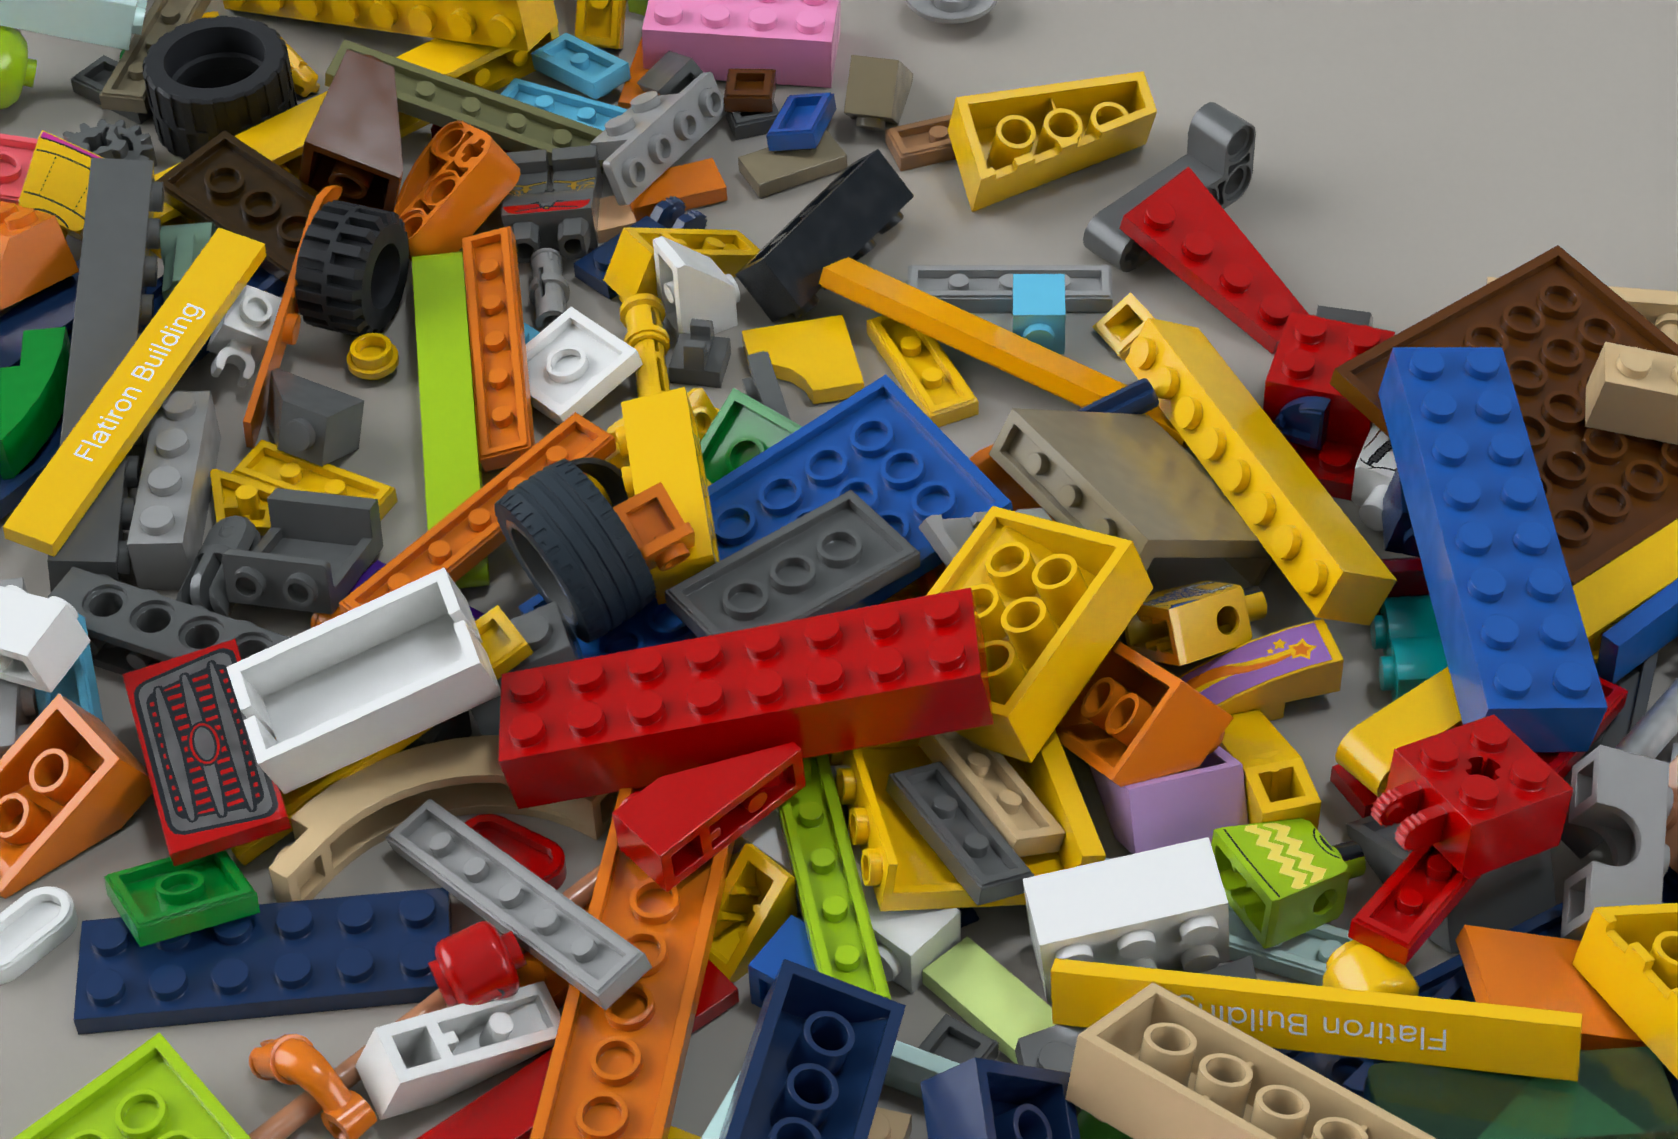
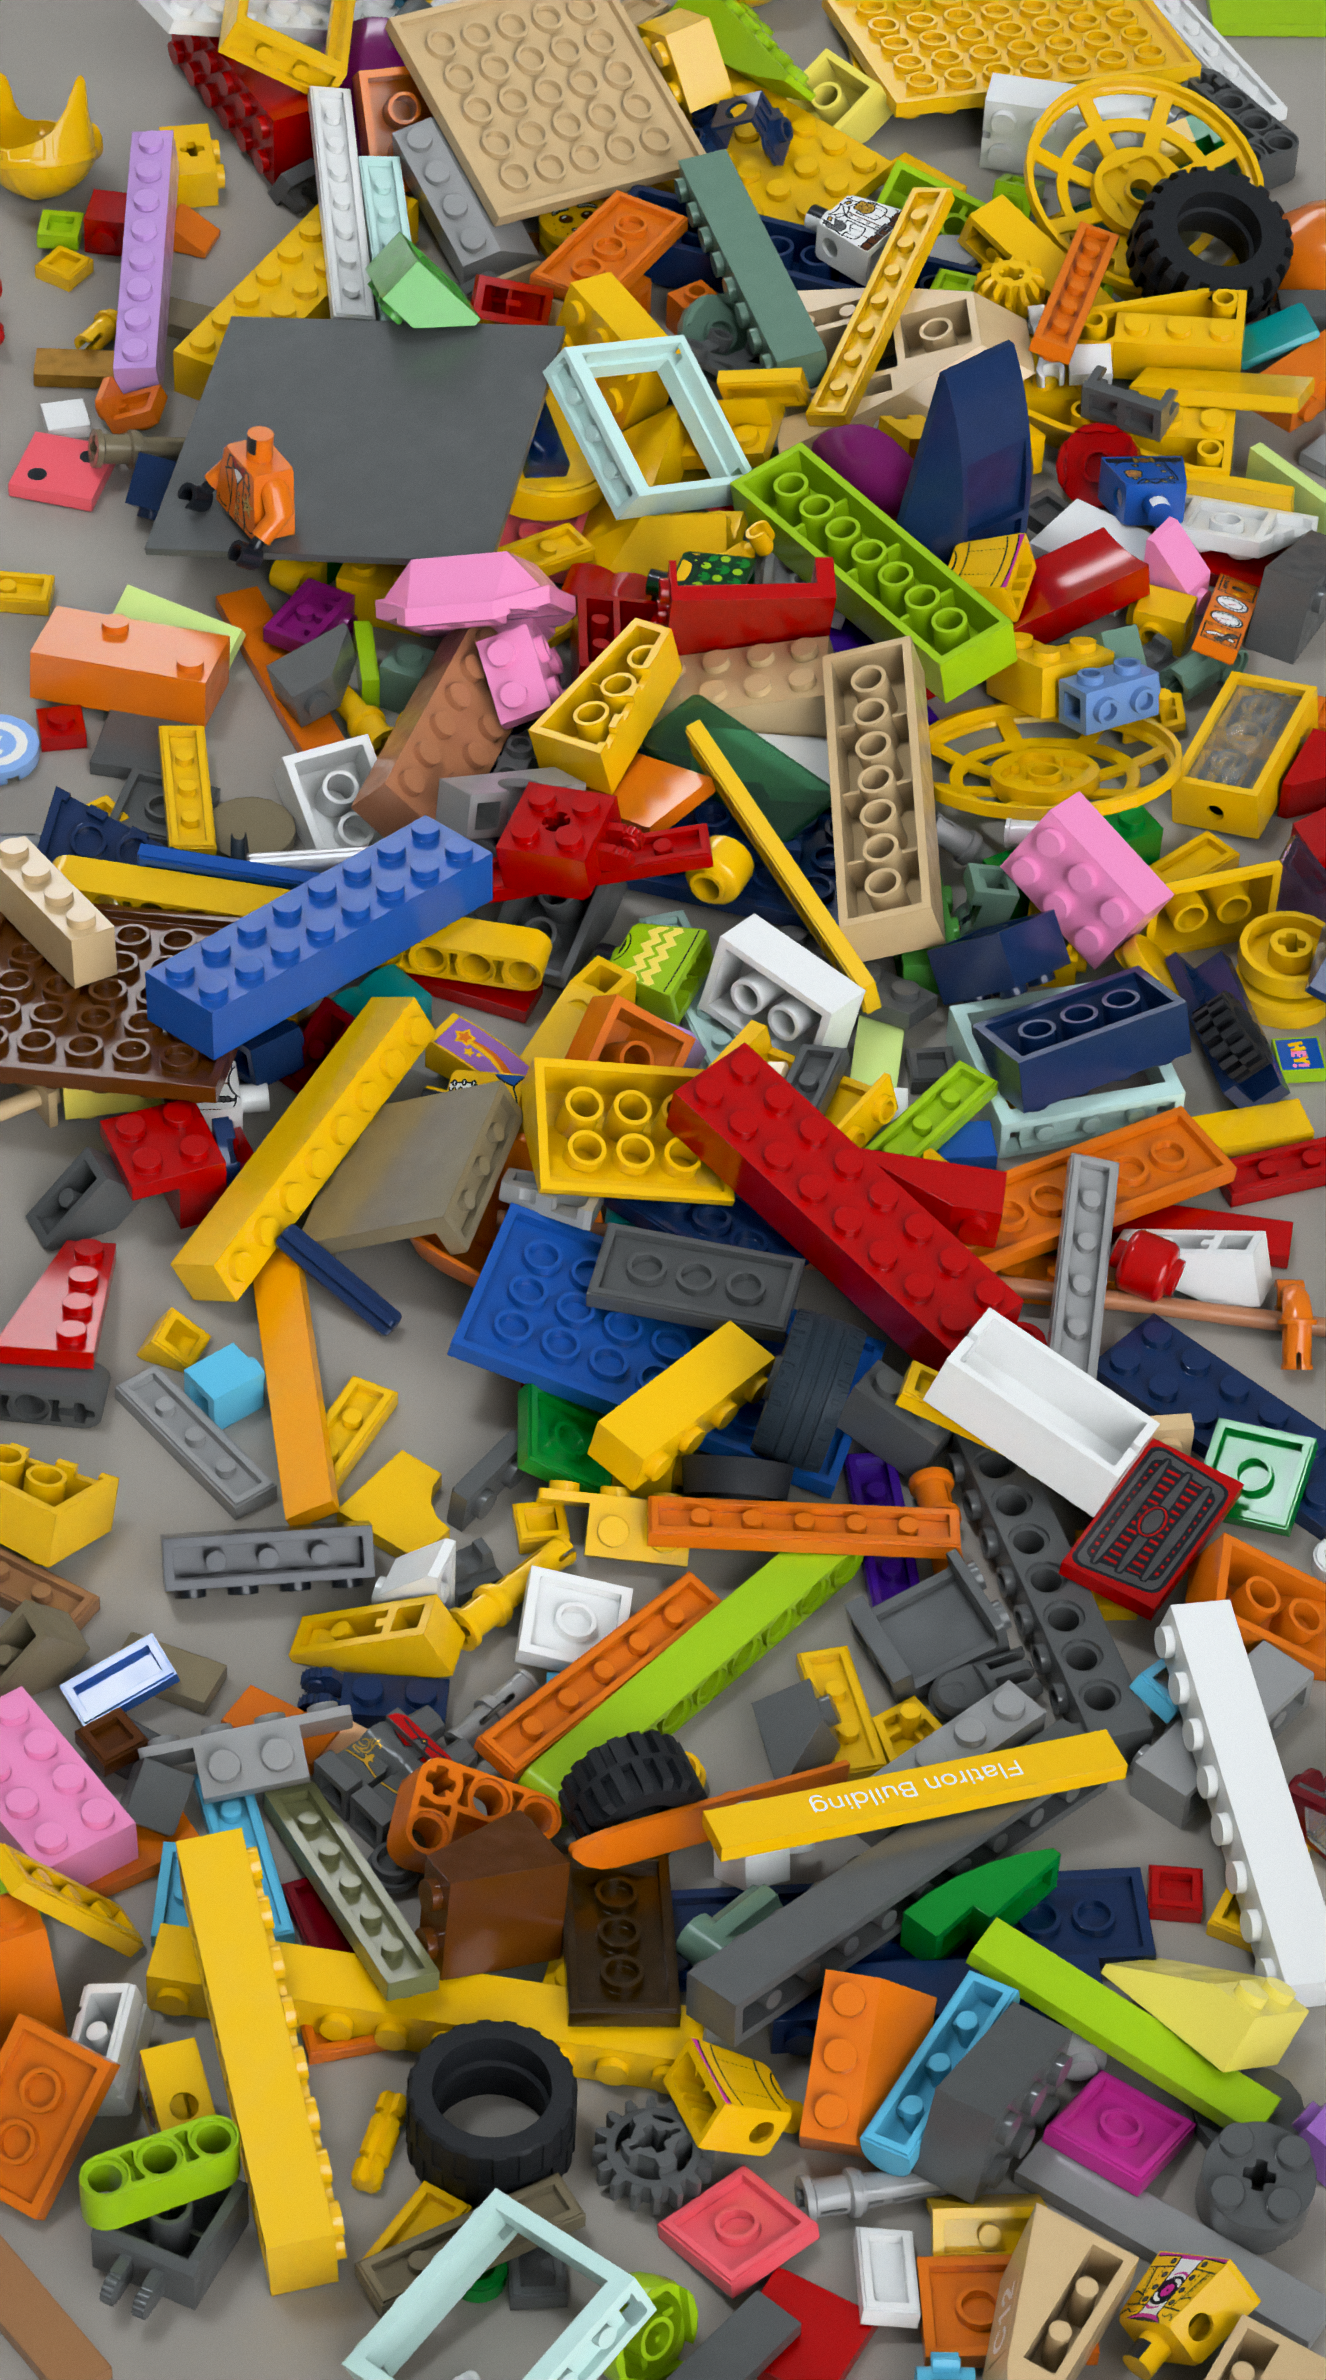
camera: 135 degrees left, 0 degrees up
(657, 527) = (757, 1336): orange bracket -> none

